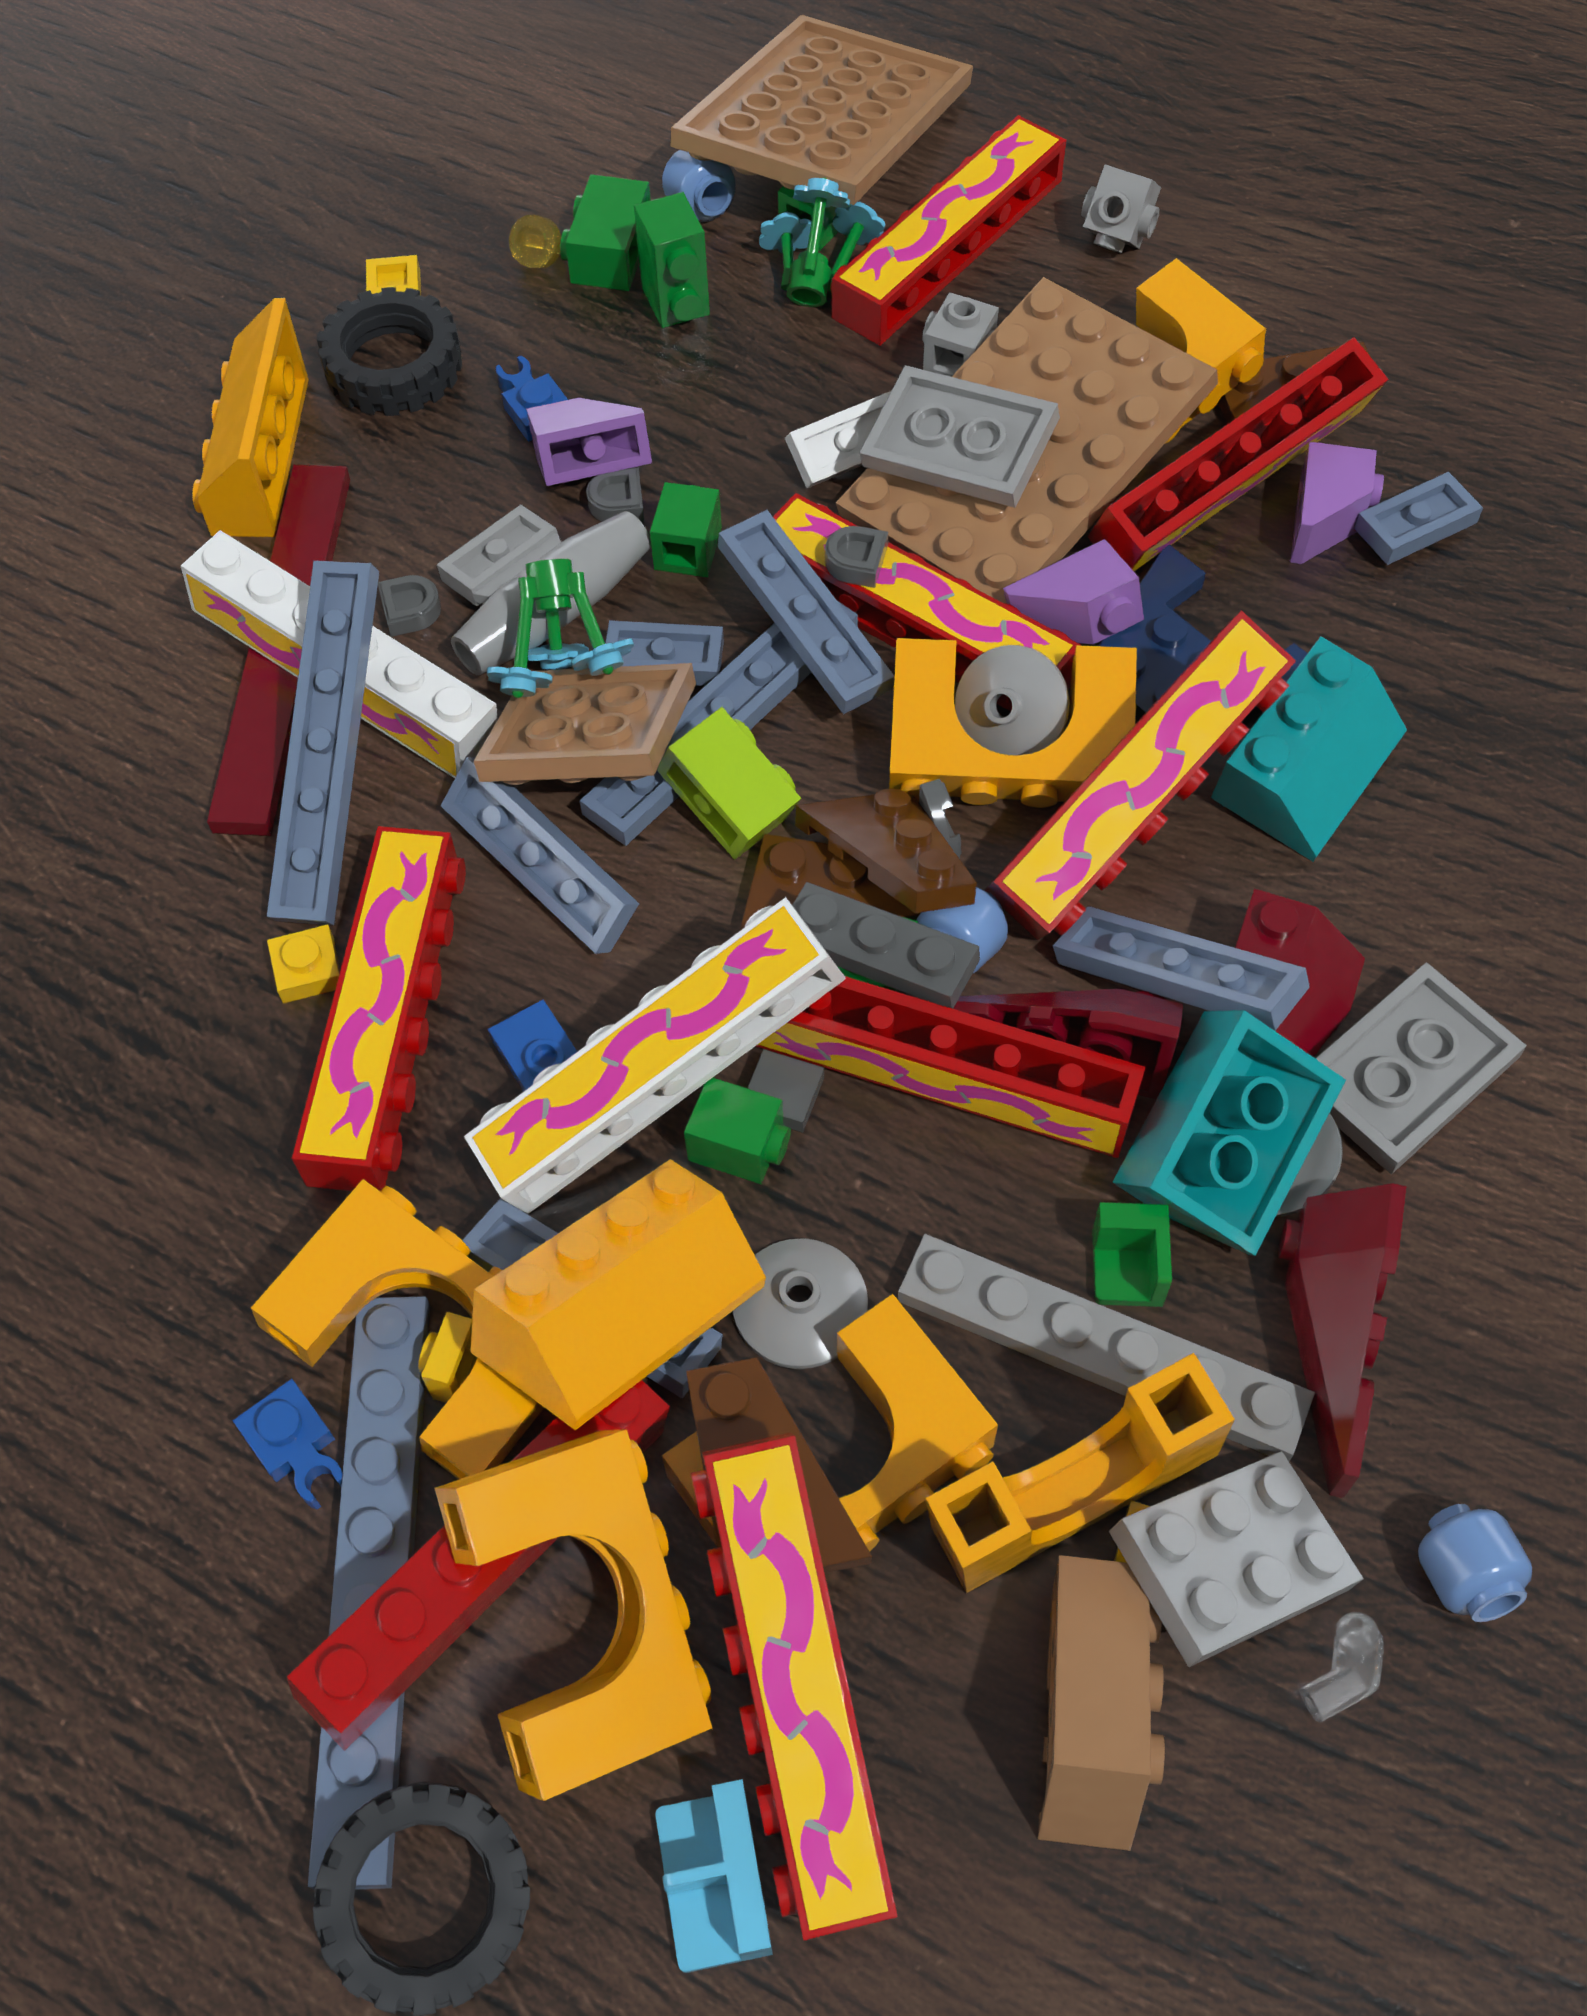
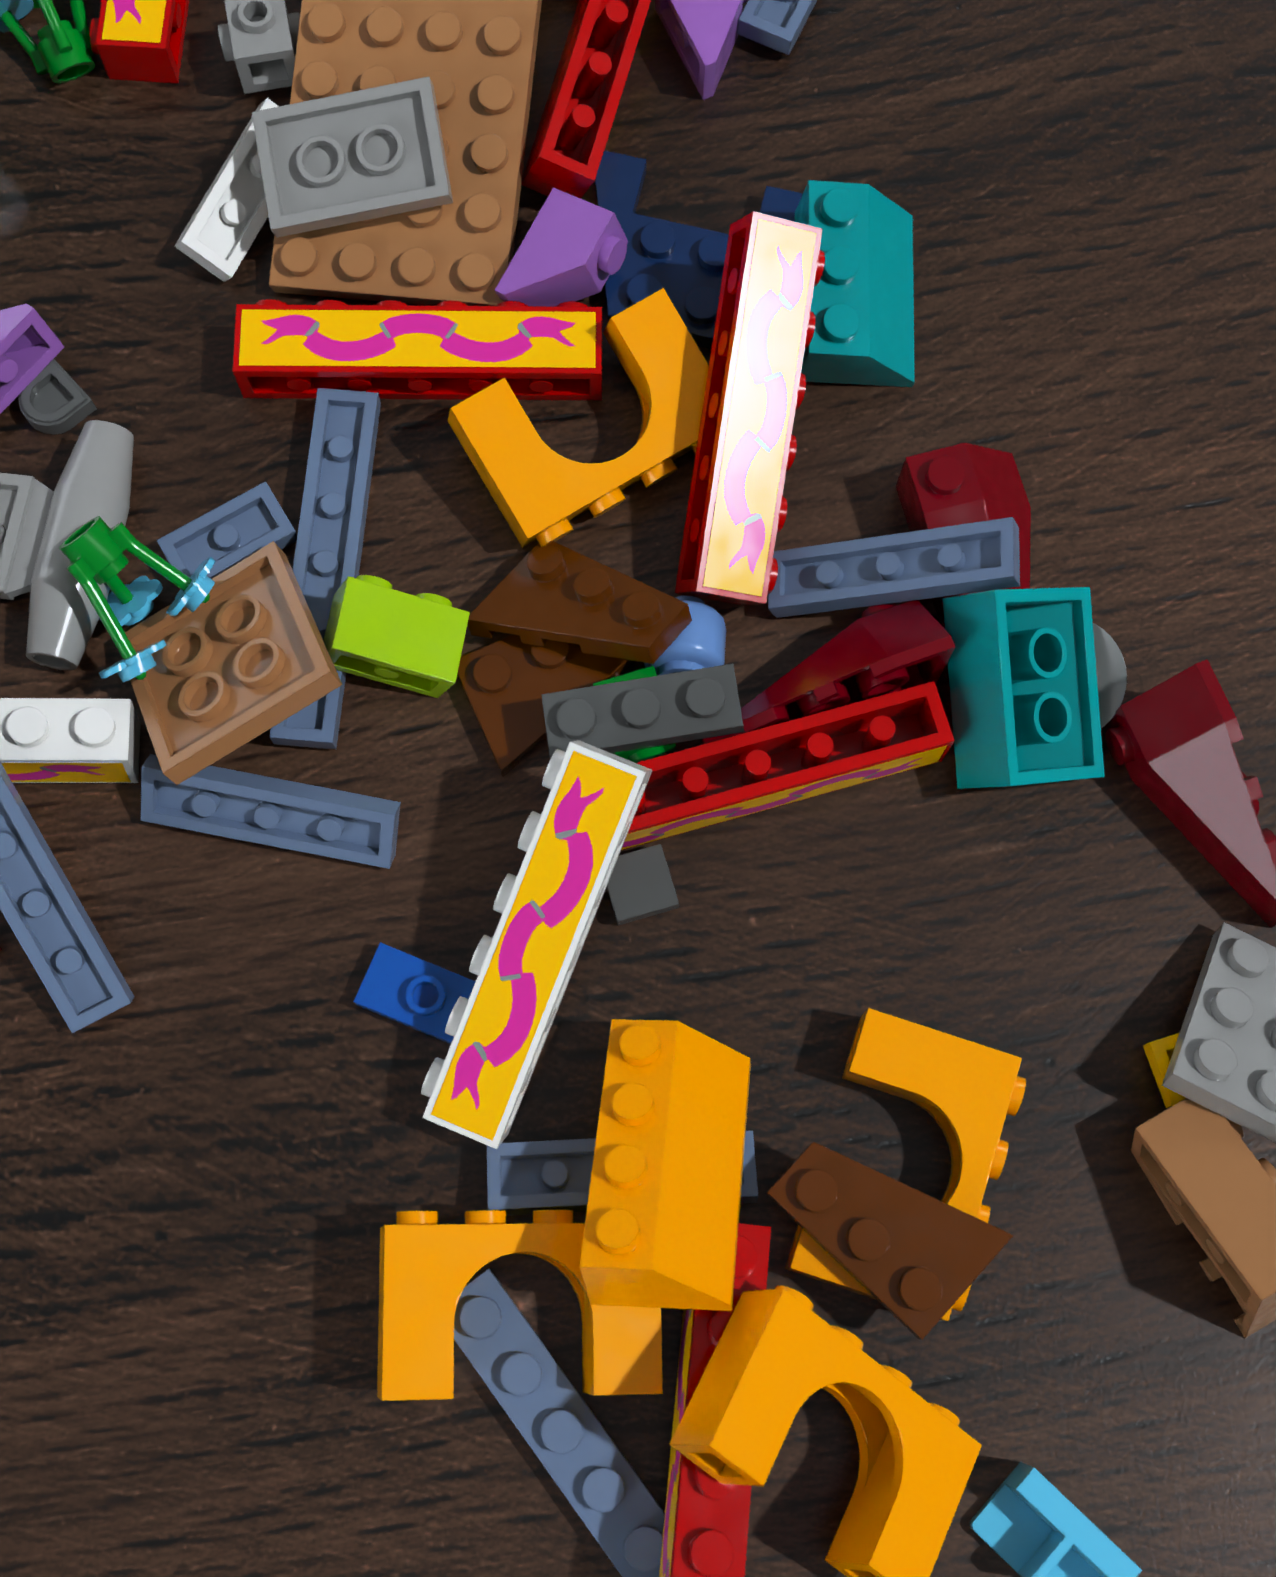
camera: 40 degrees left, 15 degrees up
(287, 1437) = (464, 1458): blue plate -> none
(304, 963) = (139, 1049): yellow plate -> none
(380, 1011) = (245, 1046): brick -> none
(447, 1357) = (549, 1306): yellow plate -> none
(686, 529) = (152, 398): green brick -> none
(736, 1130) = (635, 949): green brick -> none
(798, 1687) = (1027, 1368): brick -> none
(801, 1332) = (815, 1075): light grey dish -> none
(805, 612) = (336, 423): sand blue plate -> none
(856, 554) = (344, 339): dark grey tile -> none
(934, 801) = (583, 538): dark grey tile -> none
(1036, 695) = (587, 375): light grey dish -> none
(1093, 1339) = (1036, 928): light grey plate -> none
(1131, 1254) = (1013, 840): green panel -> none
(1158, 1435) = (1147, 986): light orange arch -> none
(1415, 1065) = (1113, 527): light grey plate -> none

